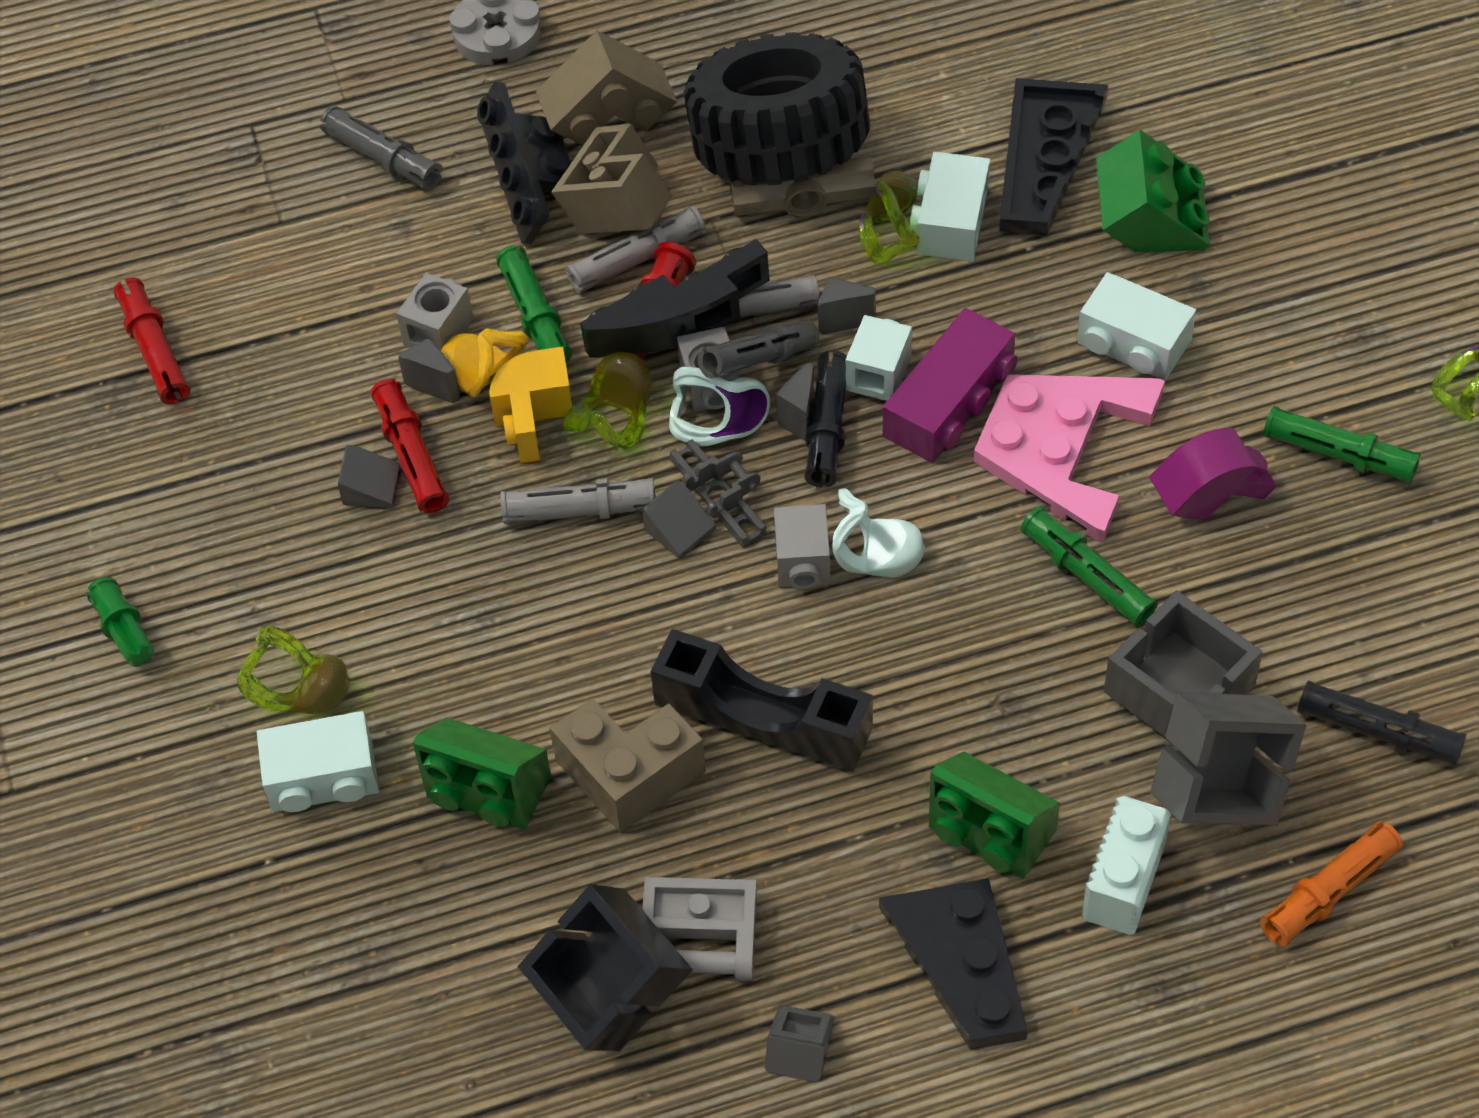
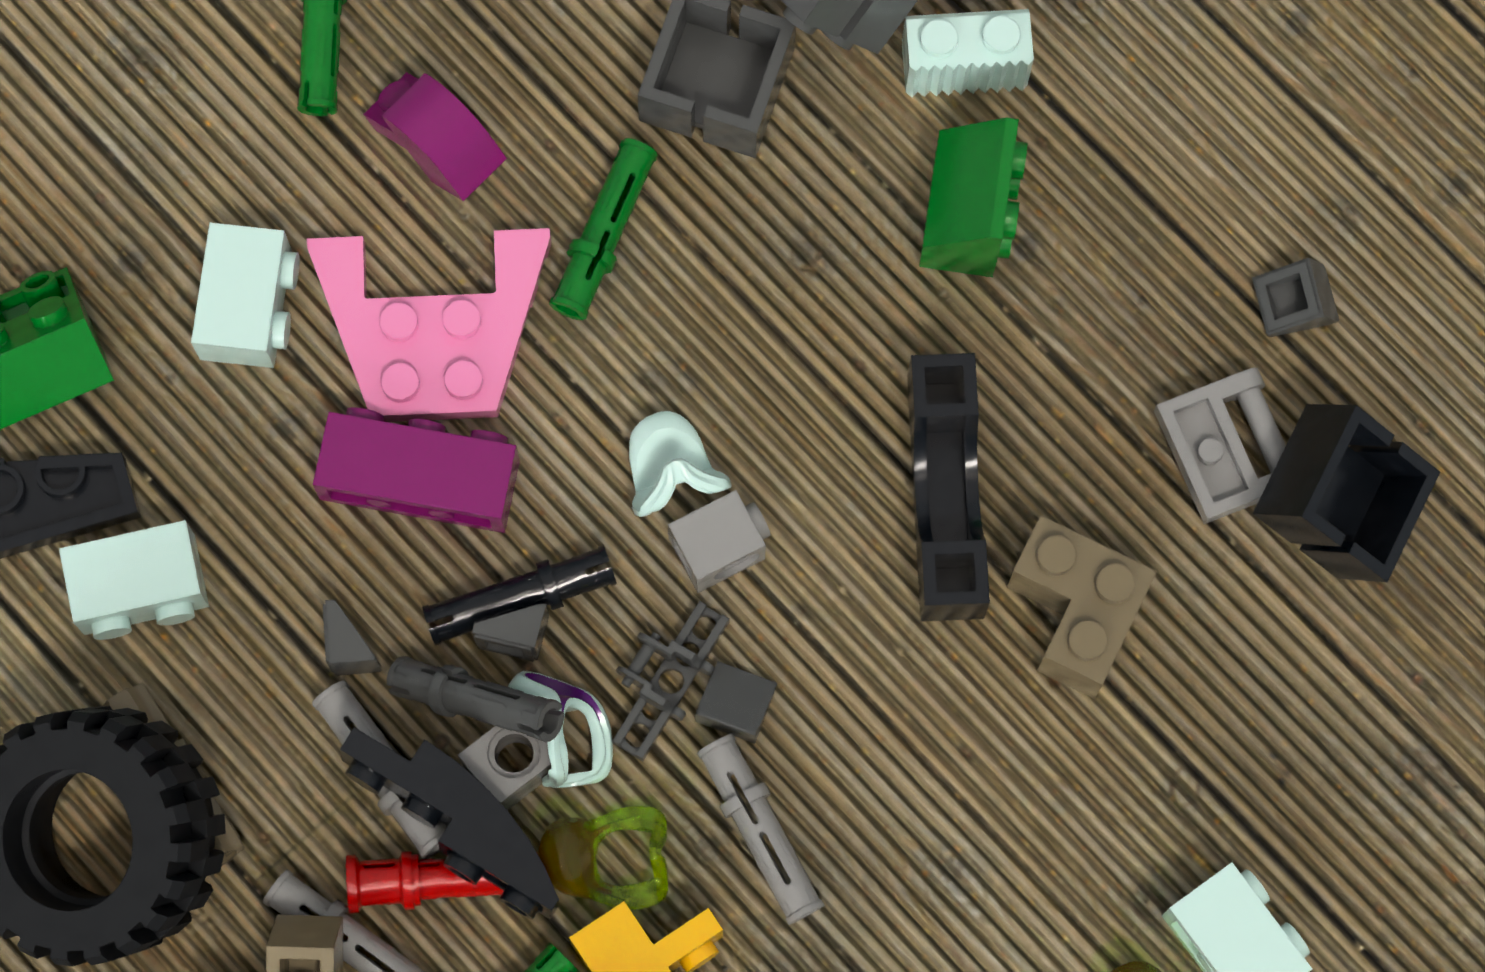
camera: 120 degrees left, 20 degrees up
(482, 772) = (1171, 743): green slope -> none
(878, 357) = (416, 562): light aqua brick -> none
(892, 199) = (145, 662): clear neon green piece -> none
(964, 956) = (1129, 180): black wing -> none

